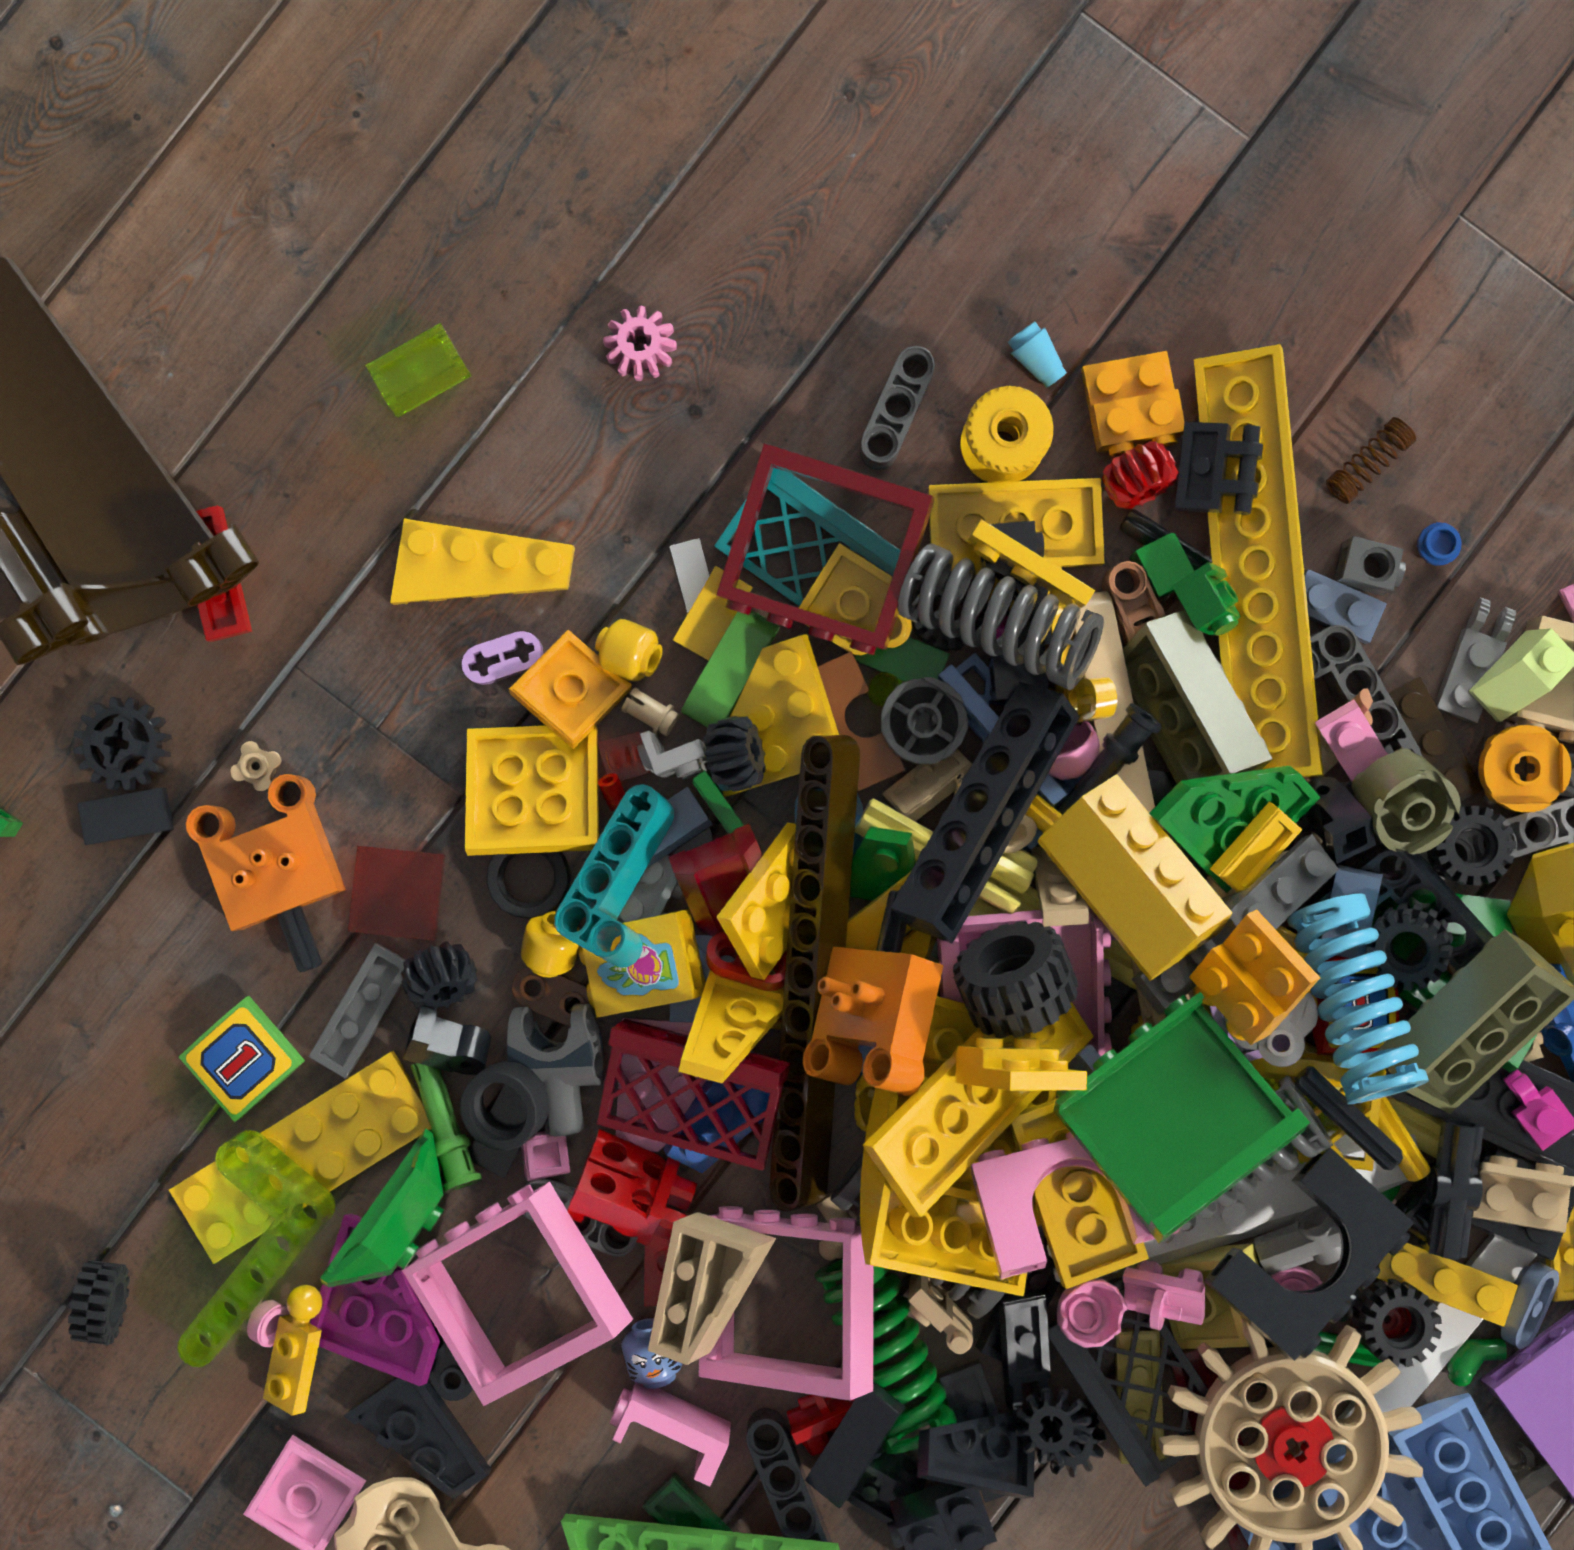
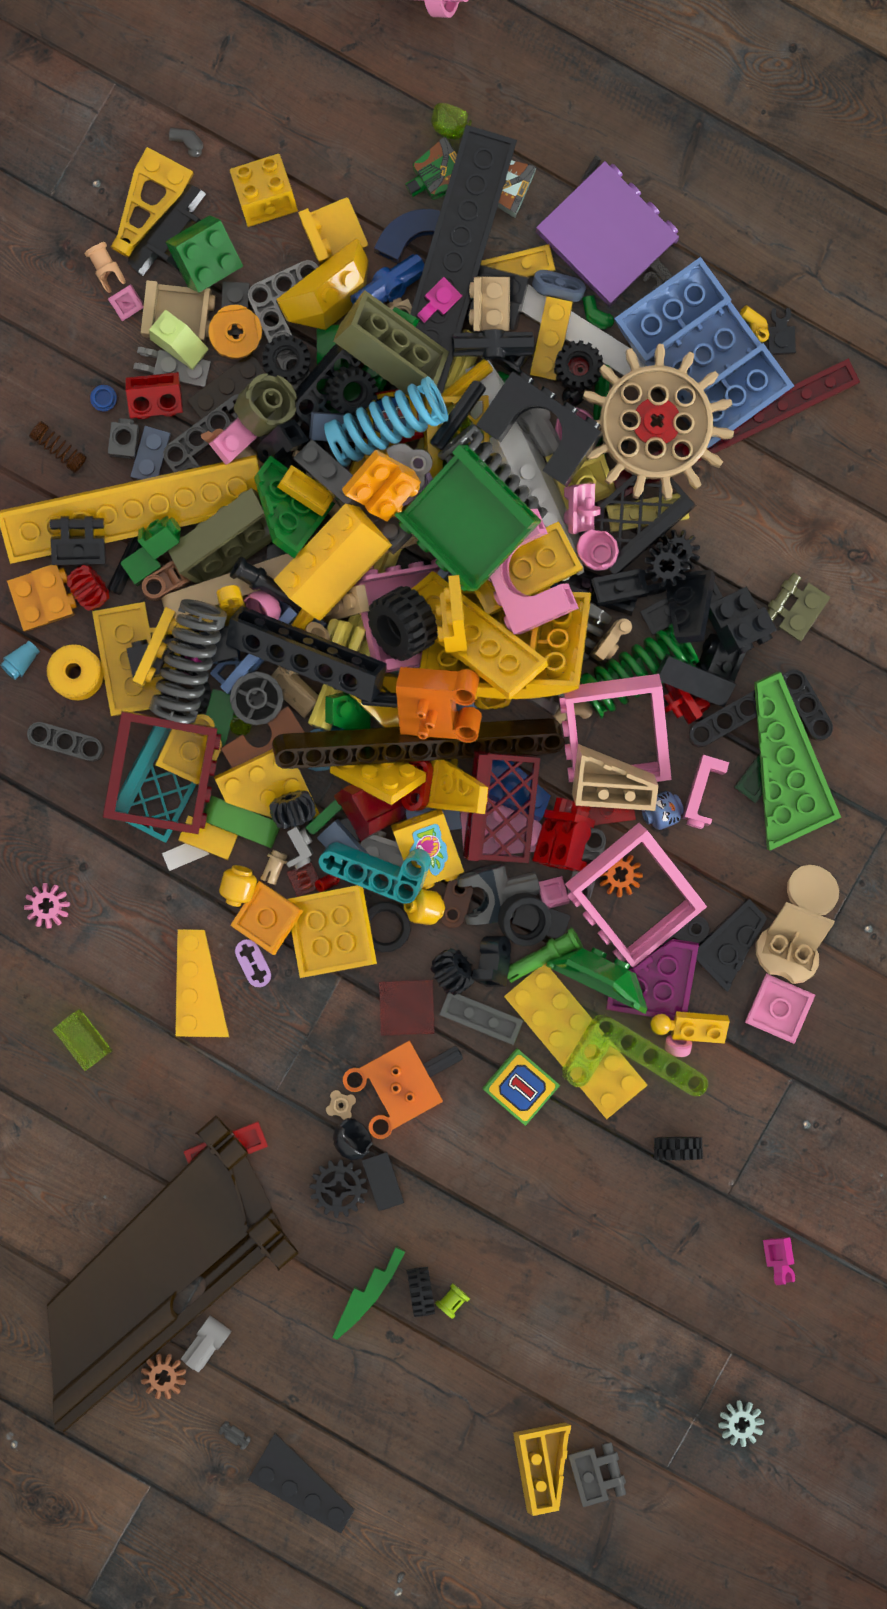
camera: 95 degrees left, 0 degrees up
(195, 776) = (352, 1139): none -> black hair
(547, 1281) = (628, 877): none -> orange gear
(1448, 622) = (153, 388): none -> red brick

